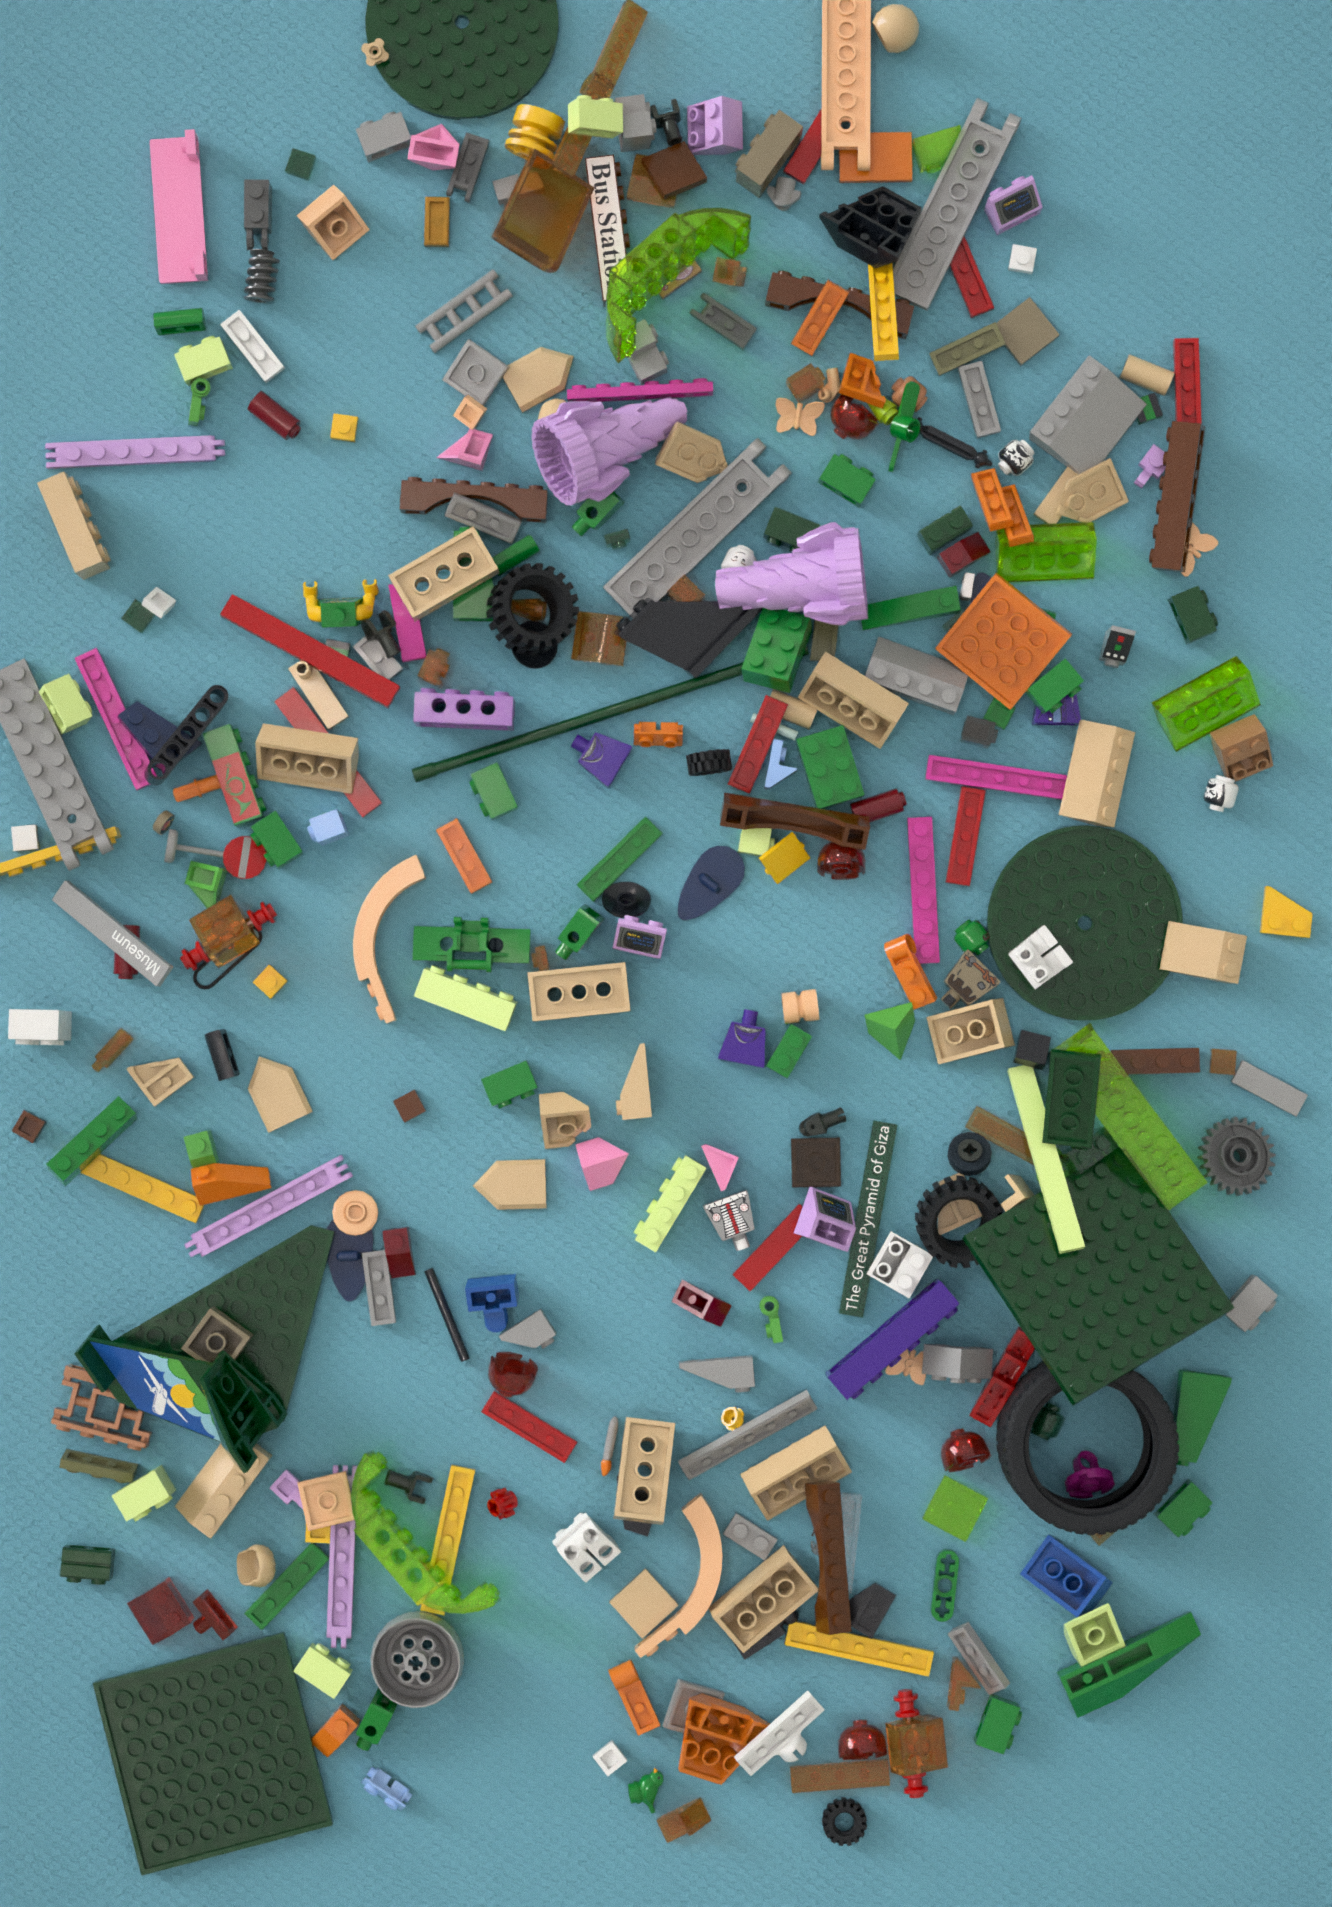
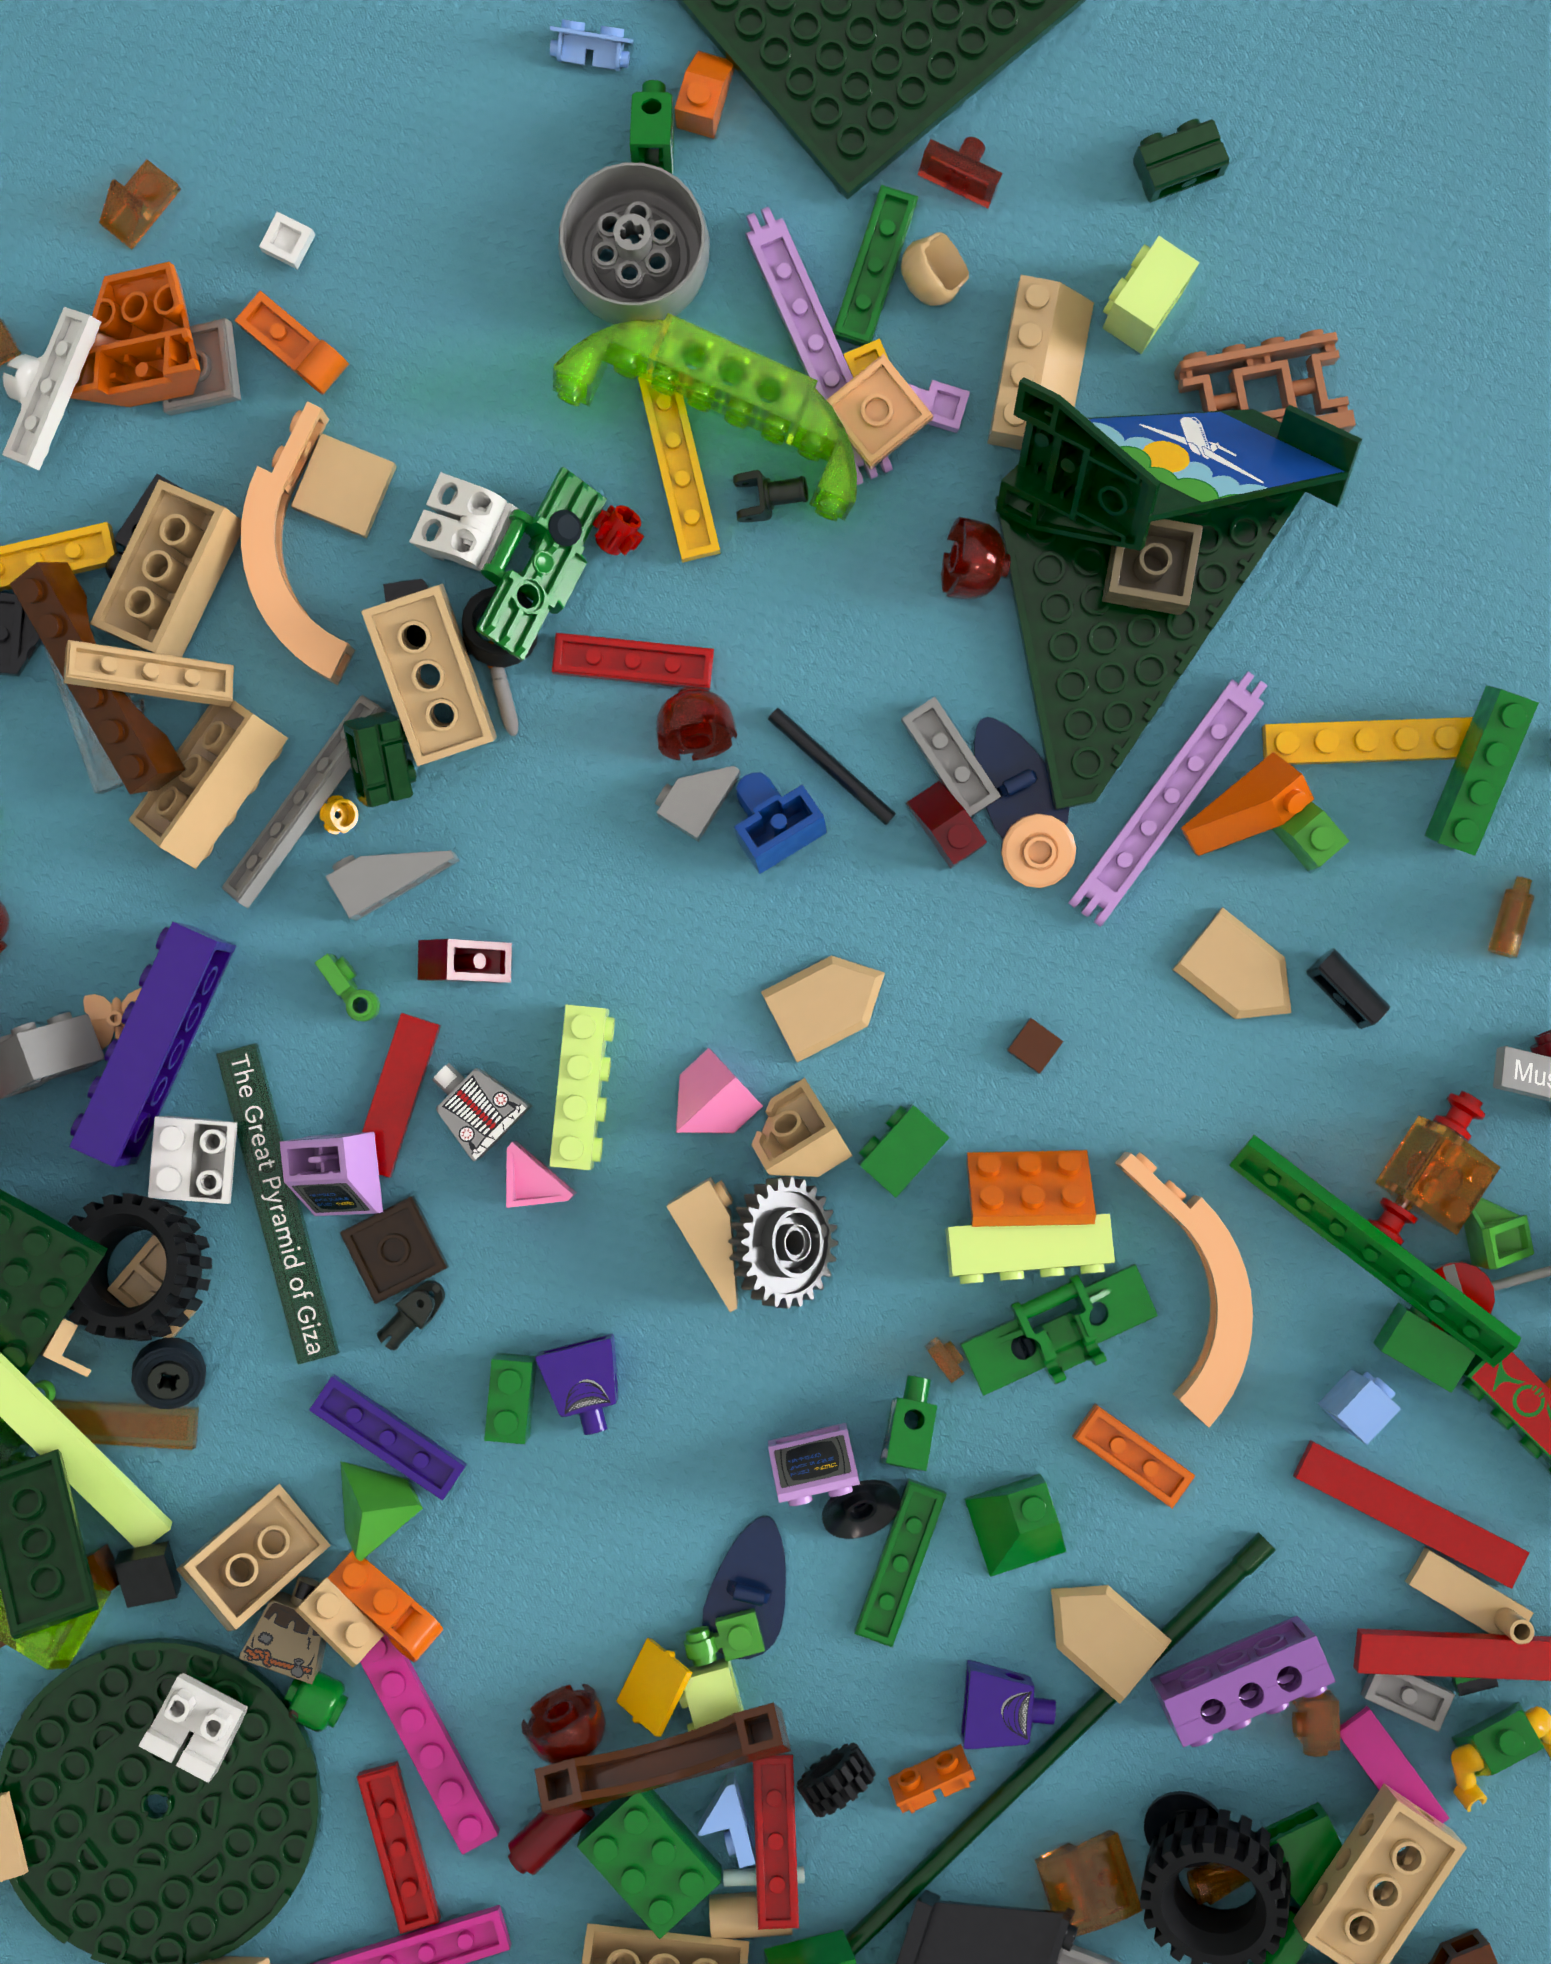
camera: 155 degrees right, 0 degrees up
(98, 1466) = (1233, 306): olive plate -> none
(160, 1078) = (1420, 910): tan wing -> none
(161, 1611) = (1038, 144): clear red slope -> none
(226, 971) = (1397, 1121): black piece -> none
(270, 981) = (1329, 1131): yellow plate -> none
(280, 907) = (1375, 1252): none -> green plate
(307, 758) = (1441, 1492): tan slope -> none
(313, 1391) = (974, 560): none -> clear red cylinder
(323, 1669) = (763, 169): yellowish green brick -> none
(384, 635) = (1422, 1738): pearl dark grey piece -> none
(450, 1030) = (1030, 1188): none -> orange plate
(494, 792) = (1136, 1576): green brick -> none
(526, 767) = (1105, 1637): none -> tan tile
(546, 849) = (1016, 1524): none -> green slope
(550, 1496) = (553, 569): none -> green piece
(566, 979) = (865, 1366): tan brick -> none
(581, 1493) = (482, 650): none -> black tyre
(598, 1065) = (783, 1242): none -> dark grey gear
(646, 1789) = (213, 220): green animal -> none
(694, 1437) = (379, 759): none -> dark green brick
(727, 862) = (737, 1636): none -> bright green plate
(750, 1536) = (250, 655): light grey plate -> none
(797, 1544) = (148, 673): none -> tan tile
(800, 1006) = (519, 1476): light nougat wheel -> none
(866, 1061) = (388, 1437): none -> dark purple plate
(937, 975) = (339, 1622): none -> tan plate

